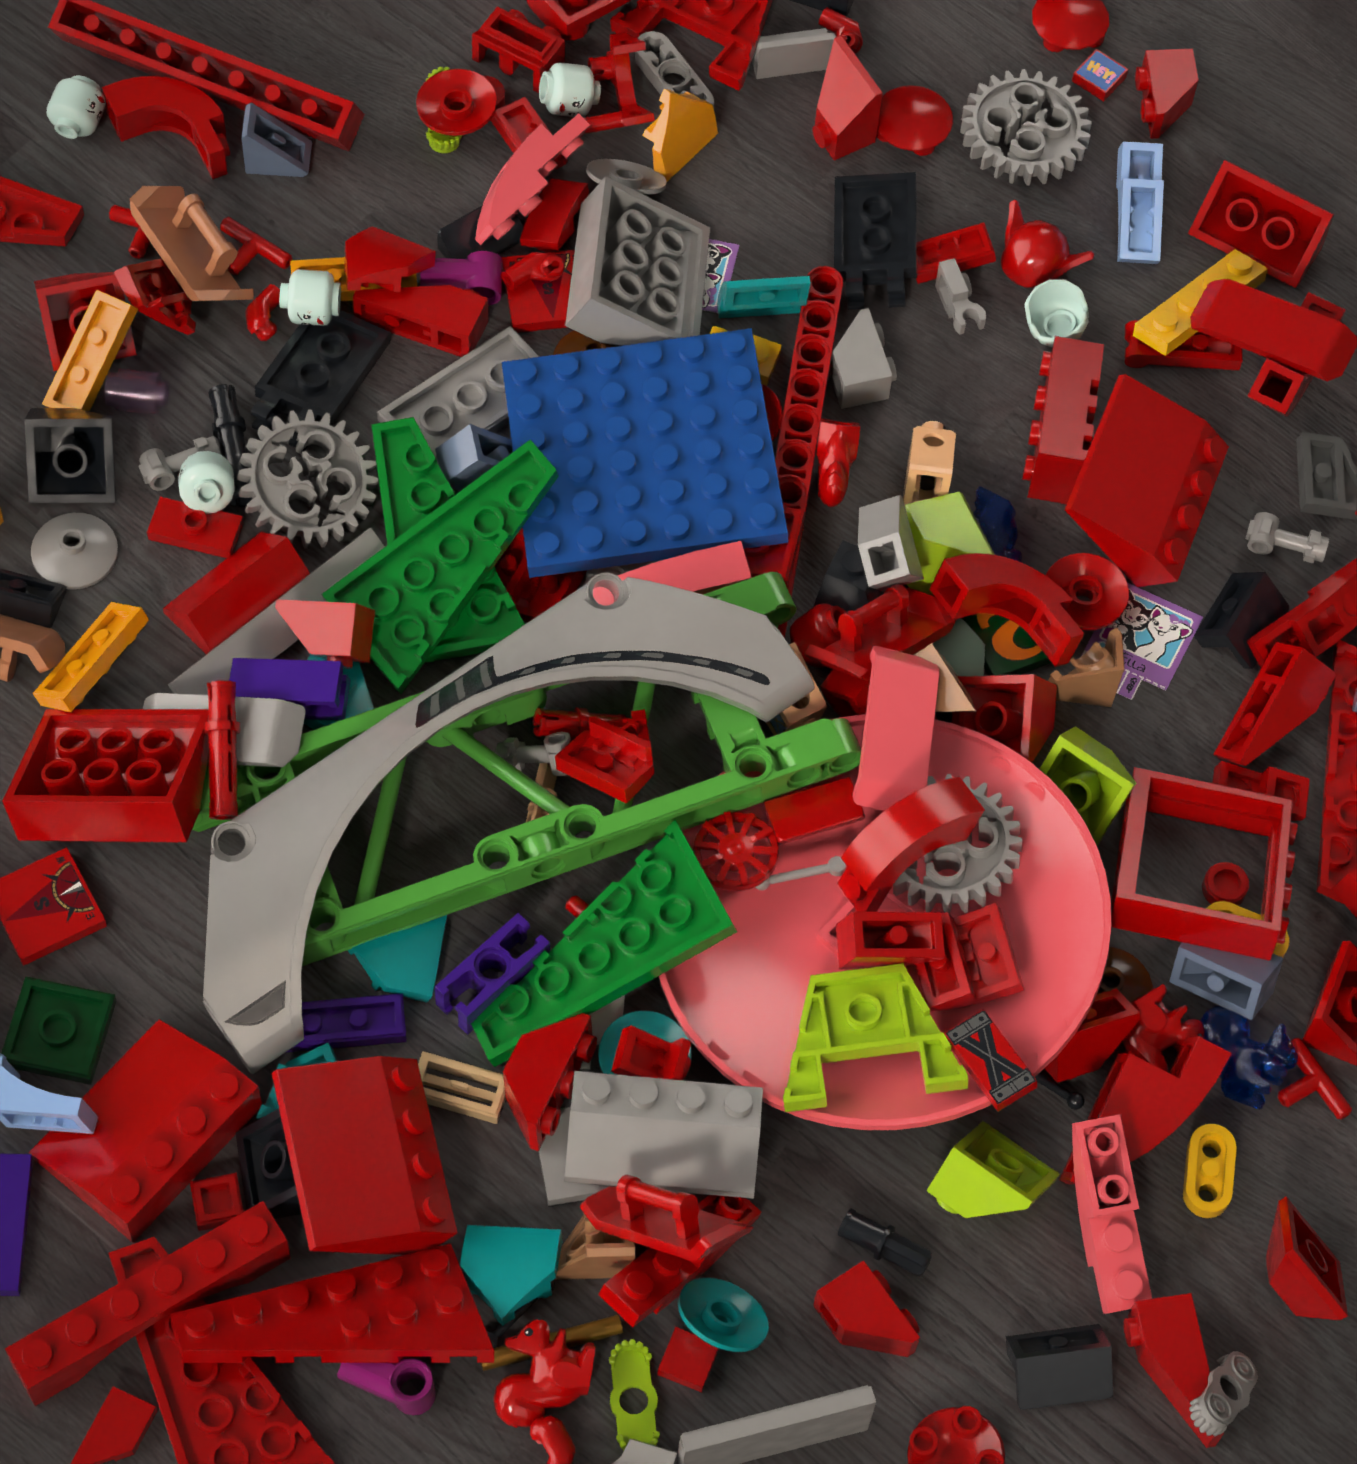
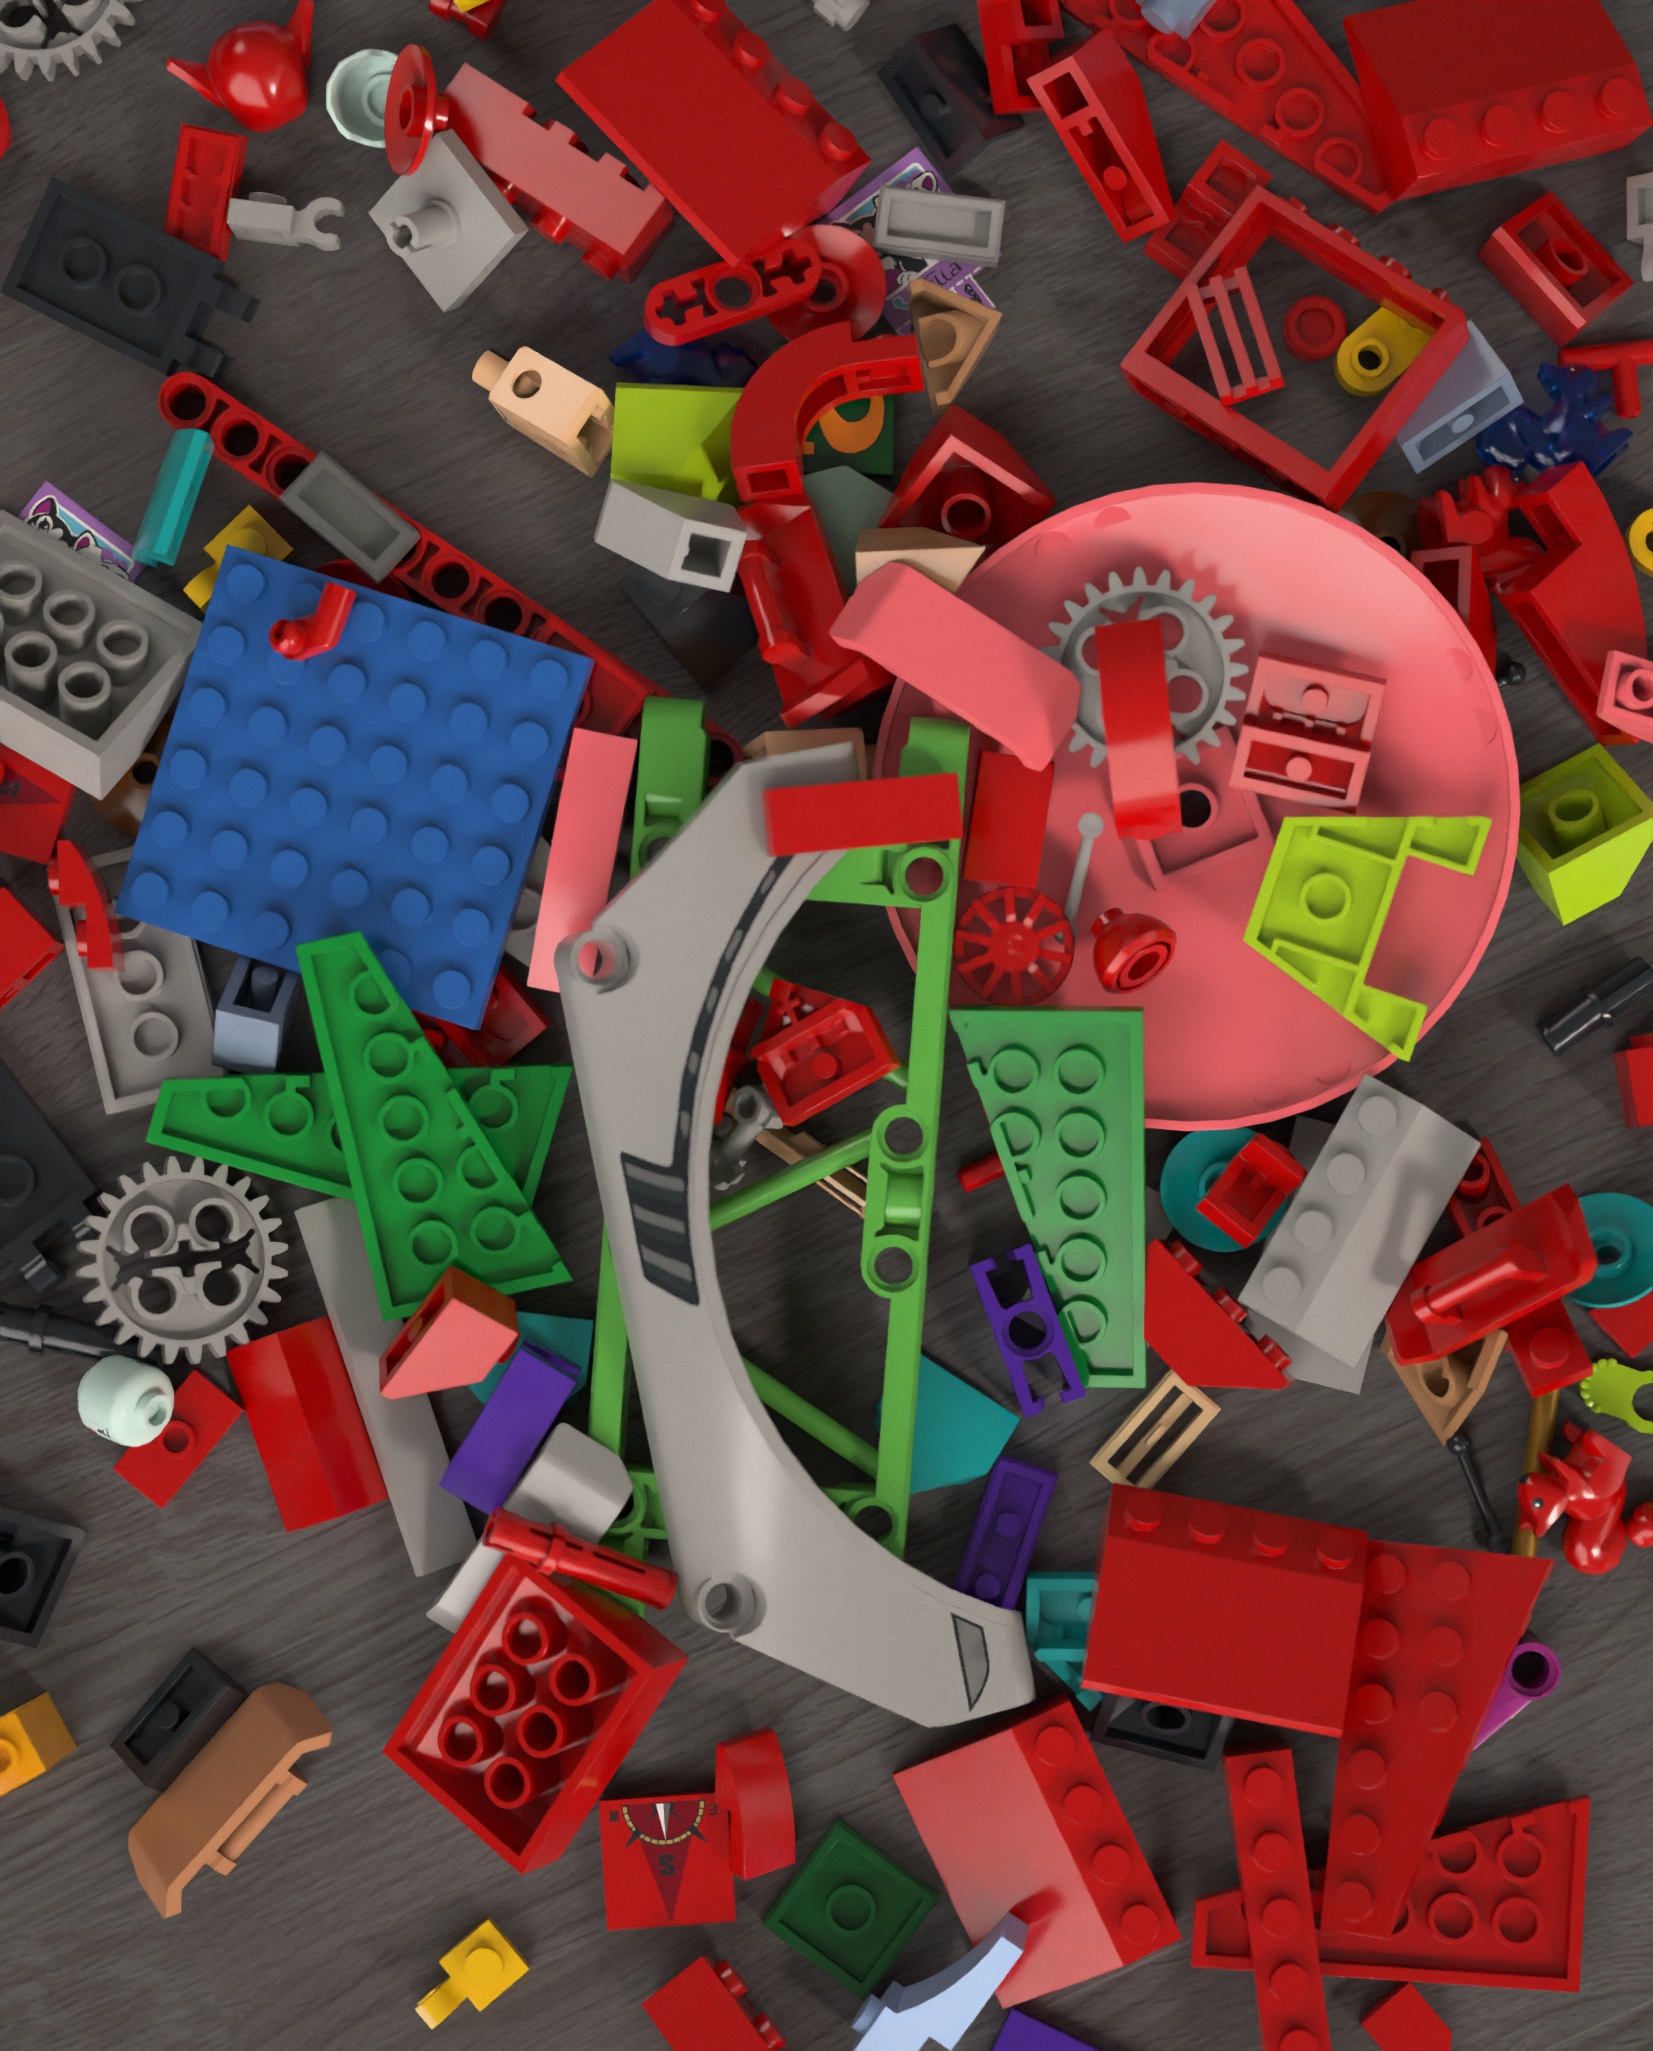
camera: 60 degrees left, 25 degrees up
(75, 565) = (170, 1606): light grey dish -> none
(91, 657) = (330, 1662): light orange plate -> none
(106, 936) = (756, 1790): none -> red slope
(159, 470) = (65, 1453): light grey bar -> none
(216, 1200) = (1172, 1800): red tile -> none
(509, 338) = (82, 887): none -> red slope
(510, 1265) = (1424, 1480): teal slope -> none
(725, 384) = (316, 631): none -> red arm
(767, 917) = (1130, 950): none -> red brick
(771, 700) = (862, 814): none -> red tile
(802, 385) = (350, 517): none -> dark grey tile
(816, 628) = (735, 677): red head -> none
(836, 453) = (477, 524): red animal -> none
(859, 364) = (329, 410): light grey slope -> none
(889, 939) = (1249, 820): red slope -> none
(991, 1060) = (1473, 775): tile -> none
(1005, 373) = (448, 221): none -> light grey tile
(1054, 552) = (682, 293): none -> red beam
(1061, 325) = (412, 110): none -> red dish
(1089, 778) = (1106, 438): lime slope -> none
(1161, 644) = (938, 226): none -> light grey tile
(1182, 810) = (1220, 292): none -> red tile

